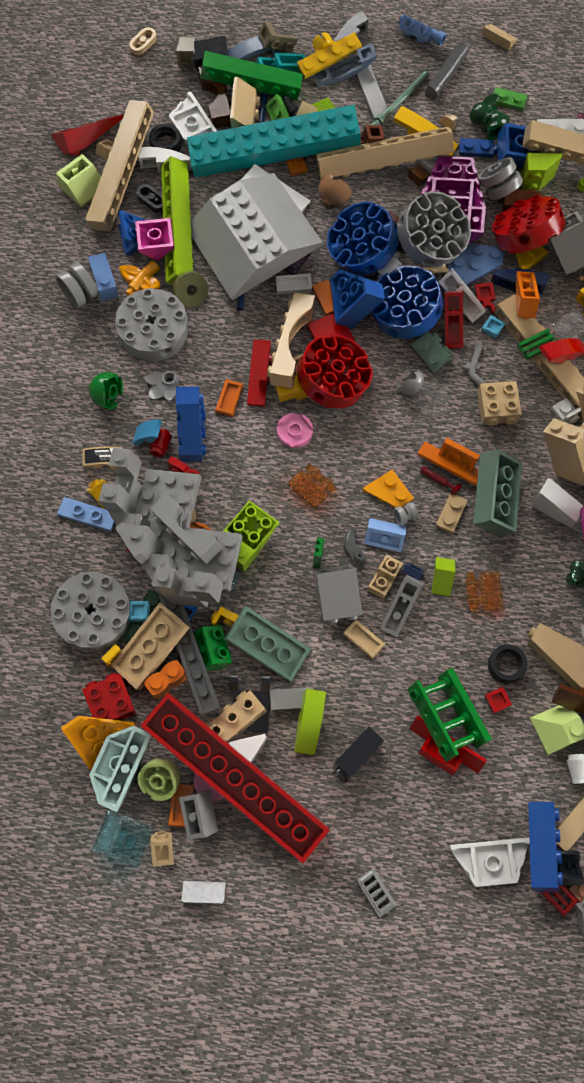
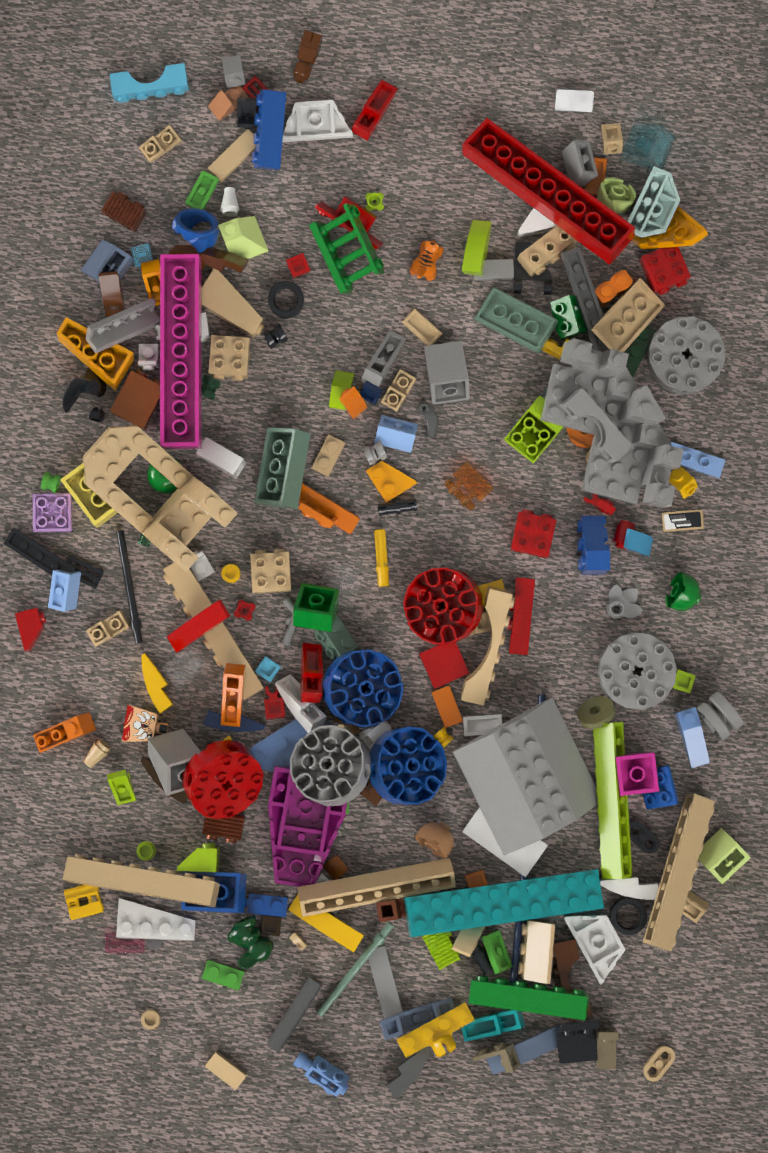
camera: 175 degrees left, 15 degrees up
(79, 138) = (725, 921): red wedge -> none
(107, 319) = (684, 681): none -> lime plate
(111, 655) = (664, 313): yellow tile -> none
(139, 278) = (650, 732): light orange plant -> none
(139, 611) = (639, 354): medium azure tile -> none
(229, 398) = (553, 587): orange tile -> none
(248, 439) = (533, 534): none -> red brick
(294, 430) = (481, 556): bright pink tile -> none
(318, 552) = (465, 408): green tile -> none
(329, 268) = (443, 737): none -> yellow wheel
(353, 297) = (419, 696): blue brick -> none
(357, 754) = (434, 212): black brick -> none
(360, 881) = (428, 111): light grey slope -> none
(364, 702) = (425, 263): none -> orange animal
(381, 465) = (397, 507): none -> black pin
(393, 419) = (381, 558): none -> yellow axle
(412, 383) = (361, 596): light grey hair -> none
(425, 767) = (374, 206): none -> lime plate
(427, 877) = (374, 110): none -> red slope
(432, 557) = (352, 402): none -> orange slope
(439, 479) = (337, 491): dark red piece -> none
(455, 369) = (316, 607): none -> green brick
(472, 132) = (271, 925): none -> dark brown tile
(490, 591) = (295, 373): clear orange plate -> none
(500, 178) = (247, 847): light grey wheel -> none
(508, 940) = (307, 56): none -> reddish brown piece
(515, 625) = (279, 335): none -> black wheel
(520, 370) = (243, 605): none -> red plate
(535, 406) = (230, 573): none -> yellow tile
(549, 337) = (240, 627): green tile -> none
(560, 602) = (229, 357): none -> tan brick
(565, 69) = (150, 1019): none -> tan tile

